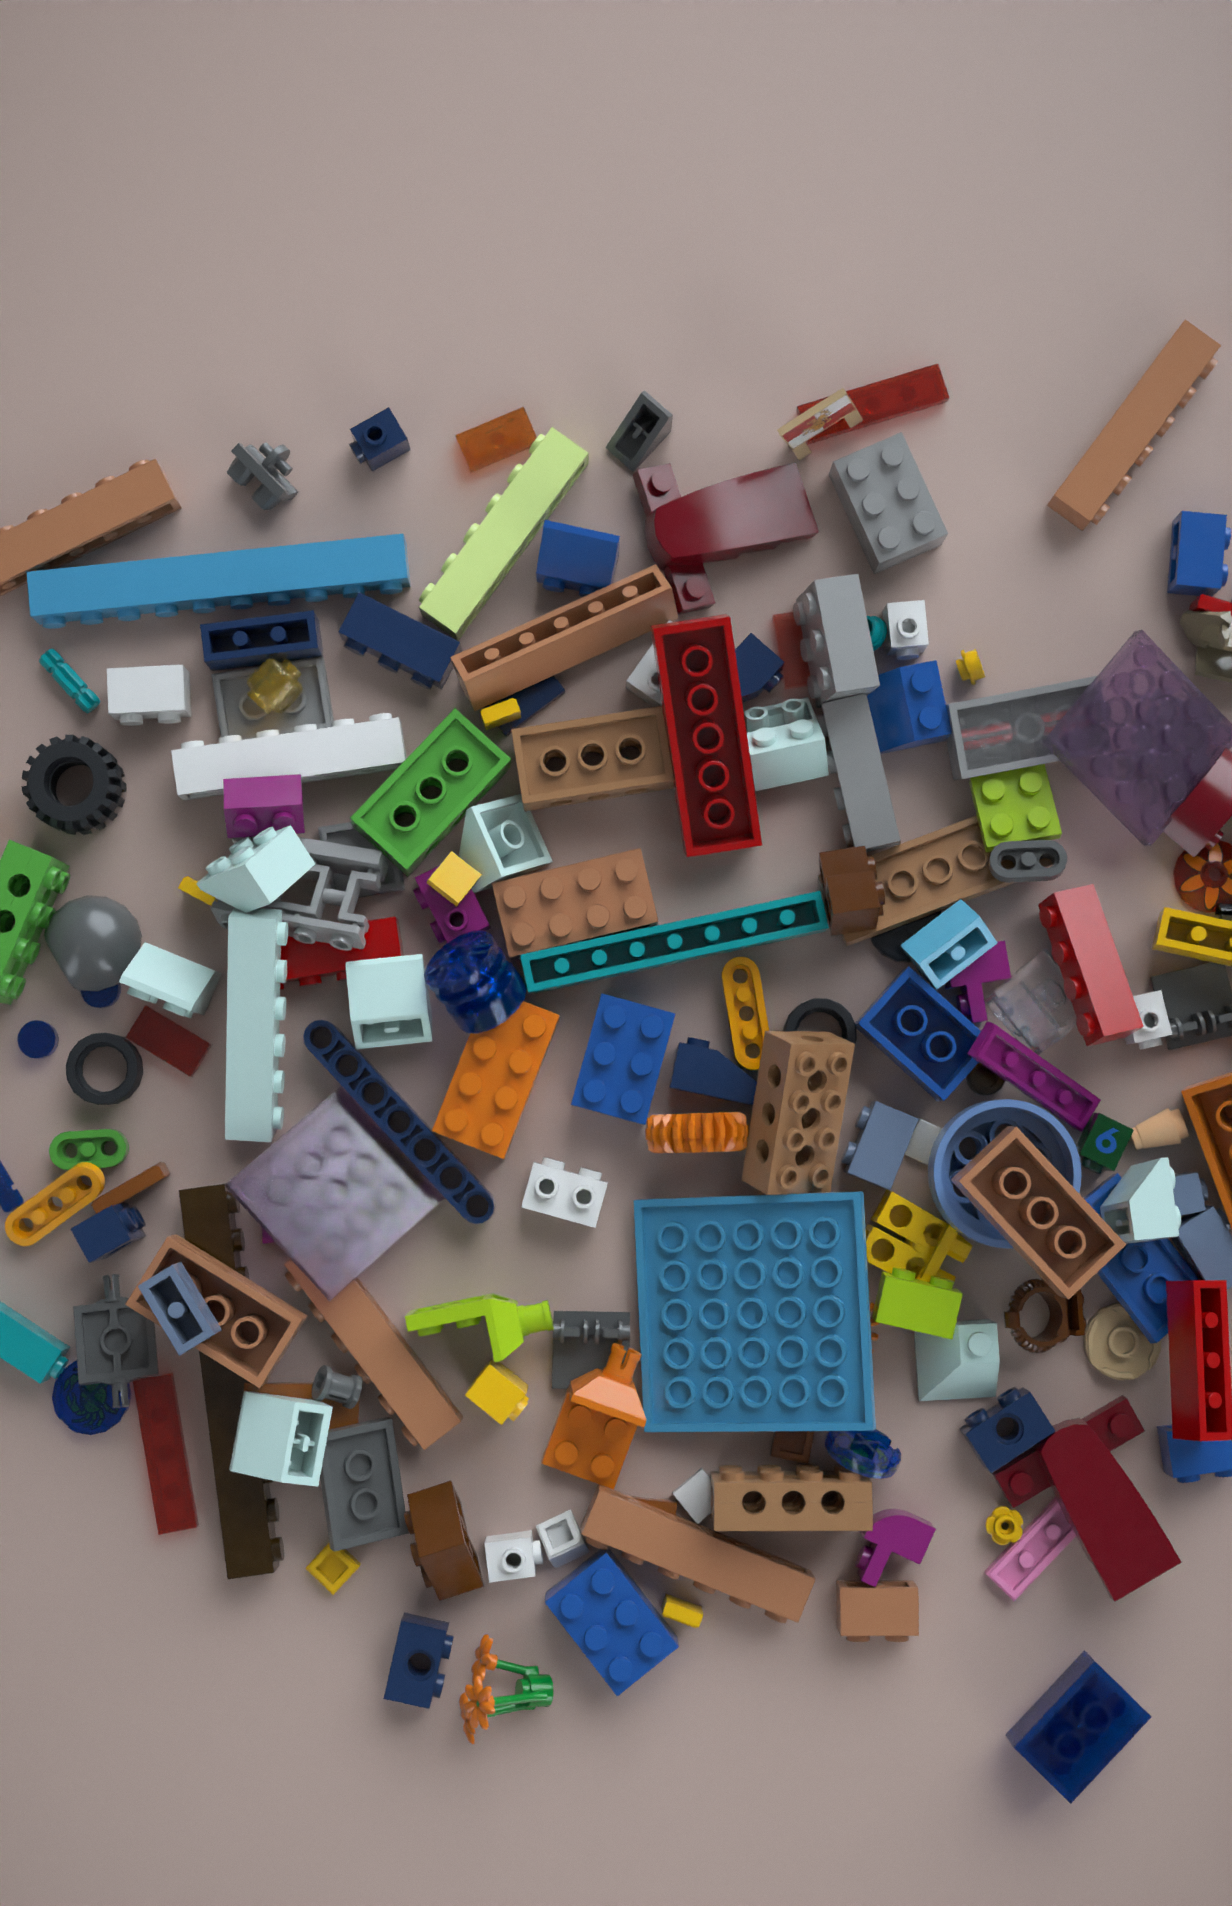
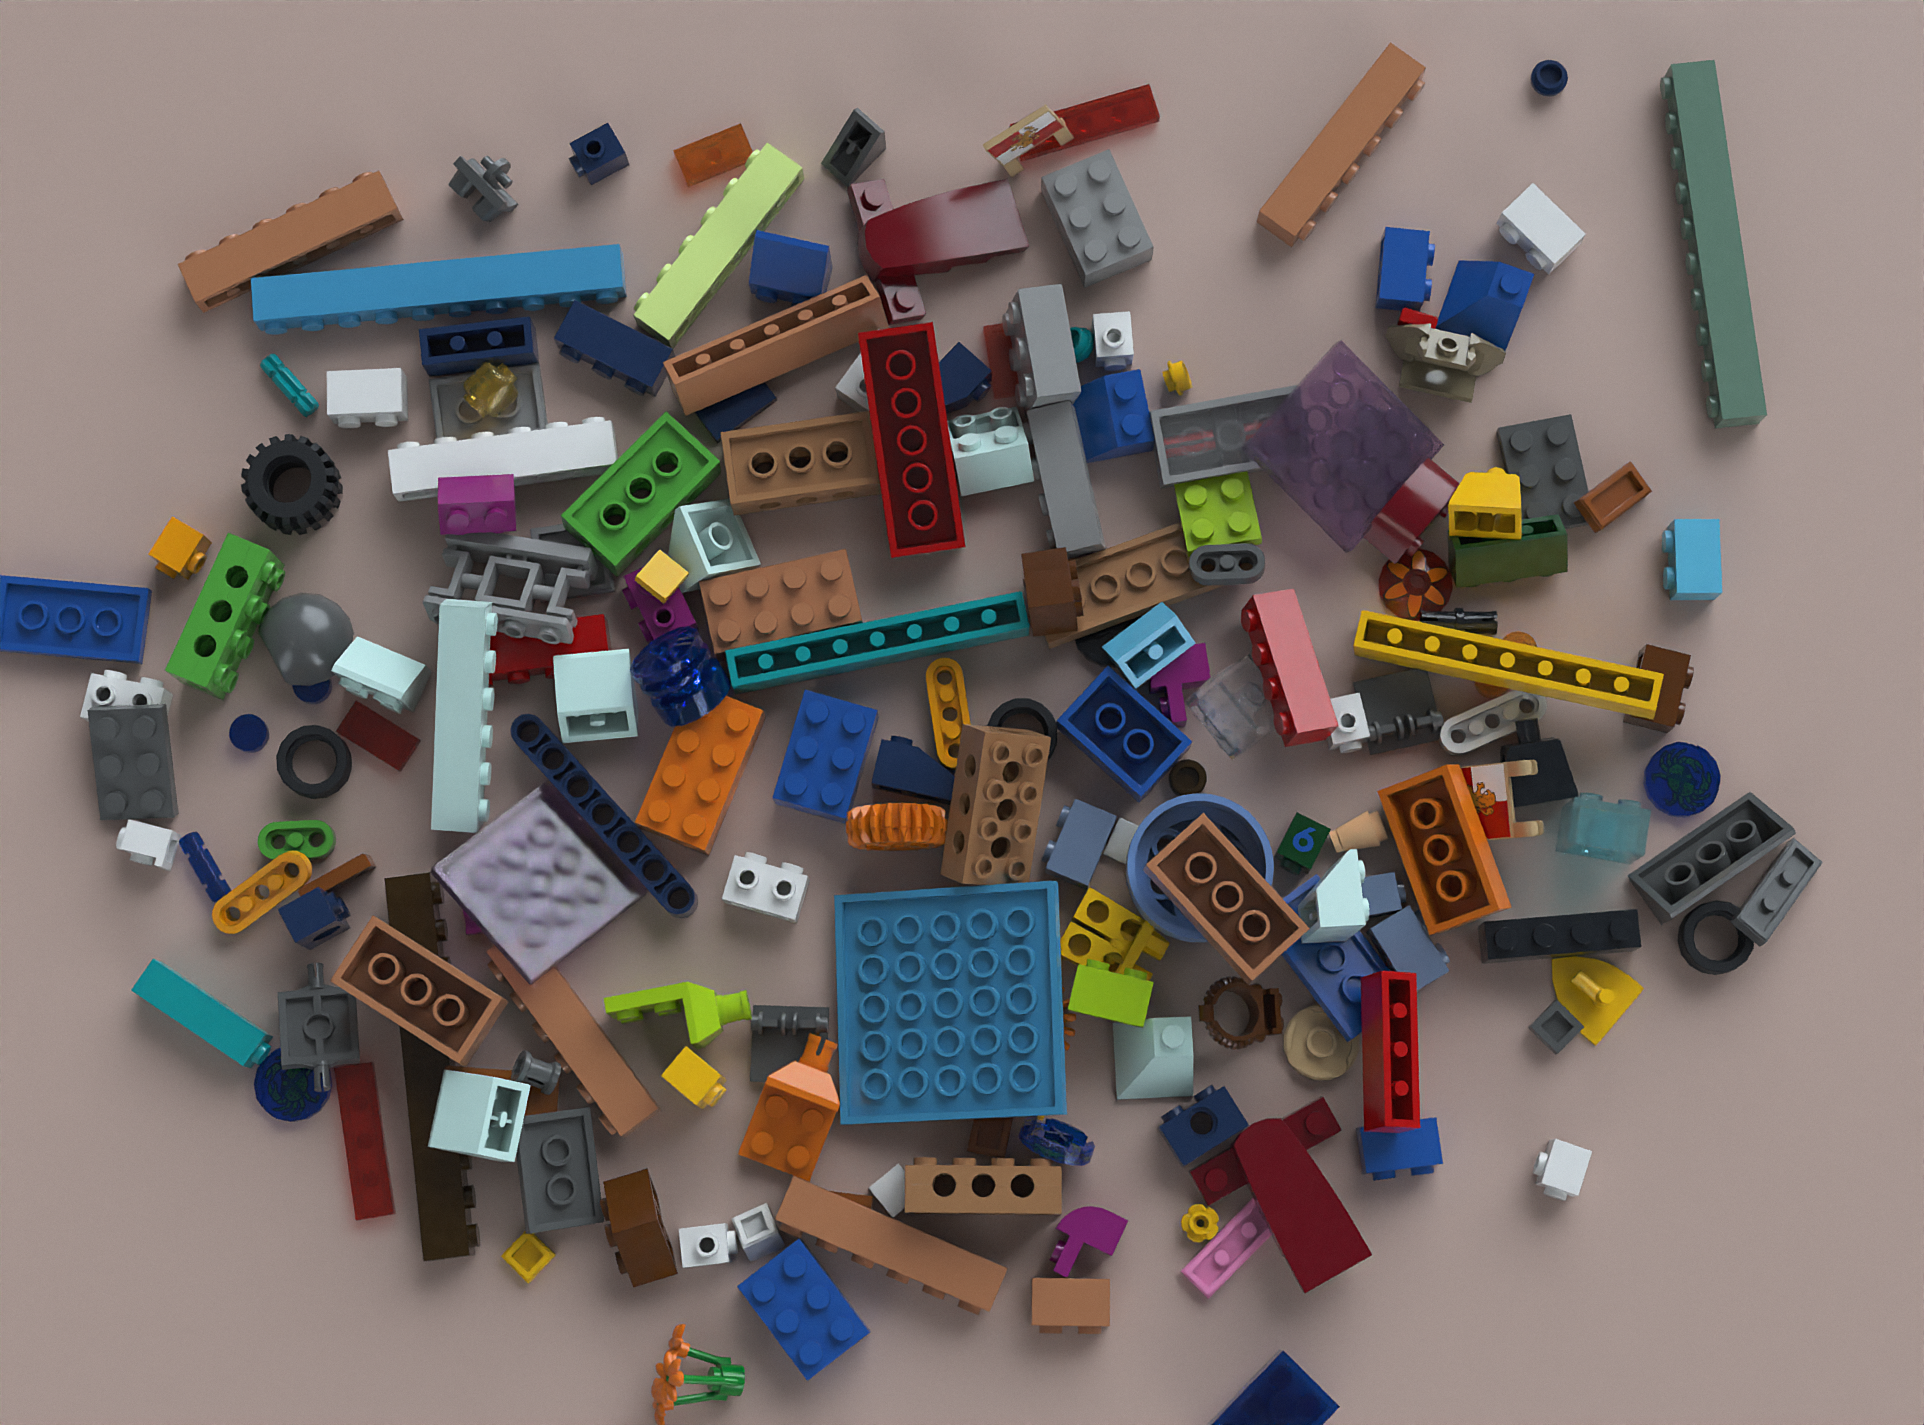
camera: 10 degrees right, 5 degrees down
(179, 1308) = (383, 979): sand blue brick -> none
(190, 887) = (410, 588): yellow tile -> none
(257, 869) = (469, 562): light aqua slope -> none
(405, 1681) = (594, 1365): dark blue brick -> none
(500, 713) = (711, 418): yellow tile -> none
(682, 1611) = (874, 1302): yellow tile -> none
(1034, 1076) = (1232, 776): magenta tile -> none

